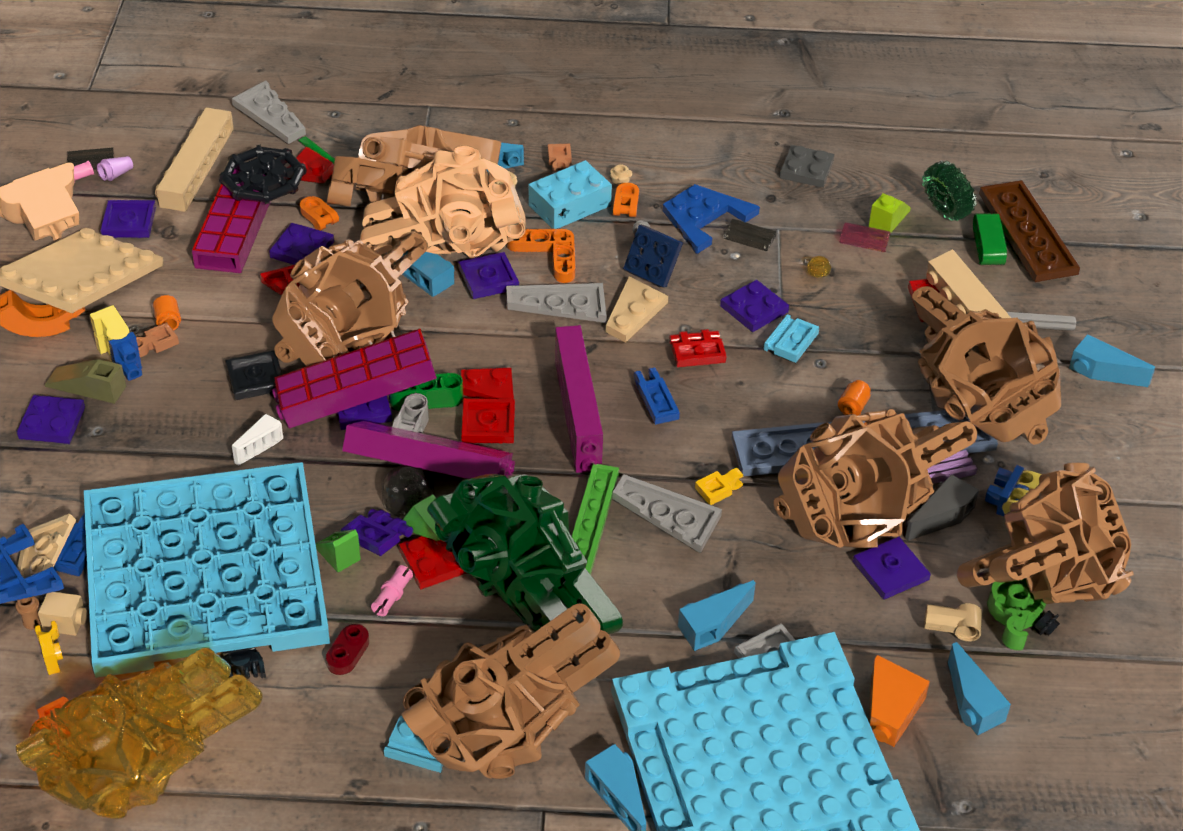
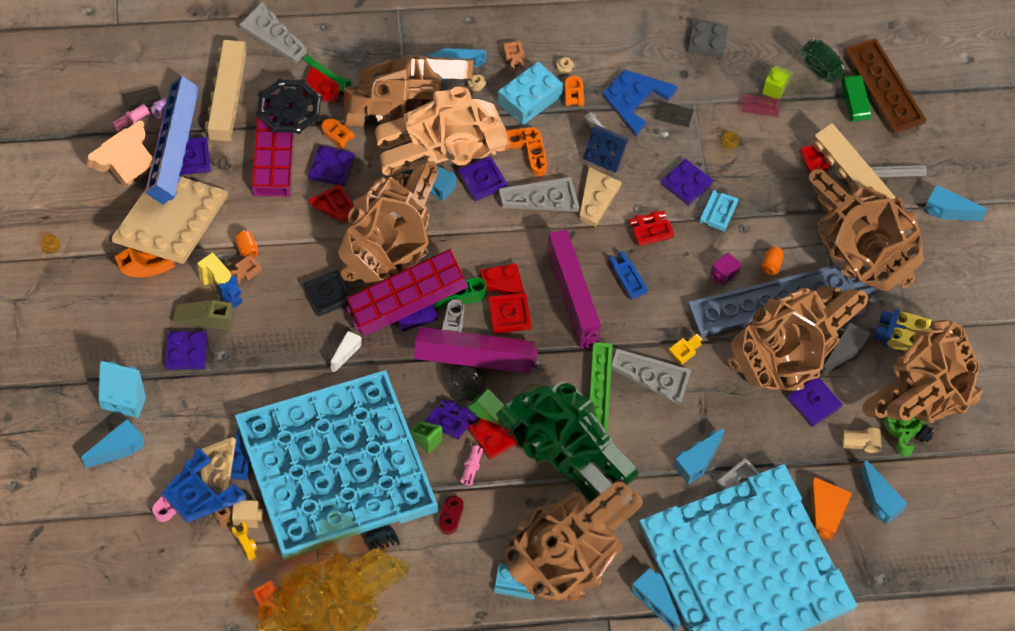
camera: 10 degrees left, 15 degrees up
(106, 195) = (172, 140): none -> brick
(789, 401) = (725, 269): none -> magenta brick

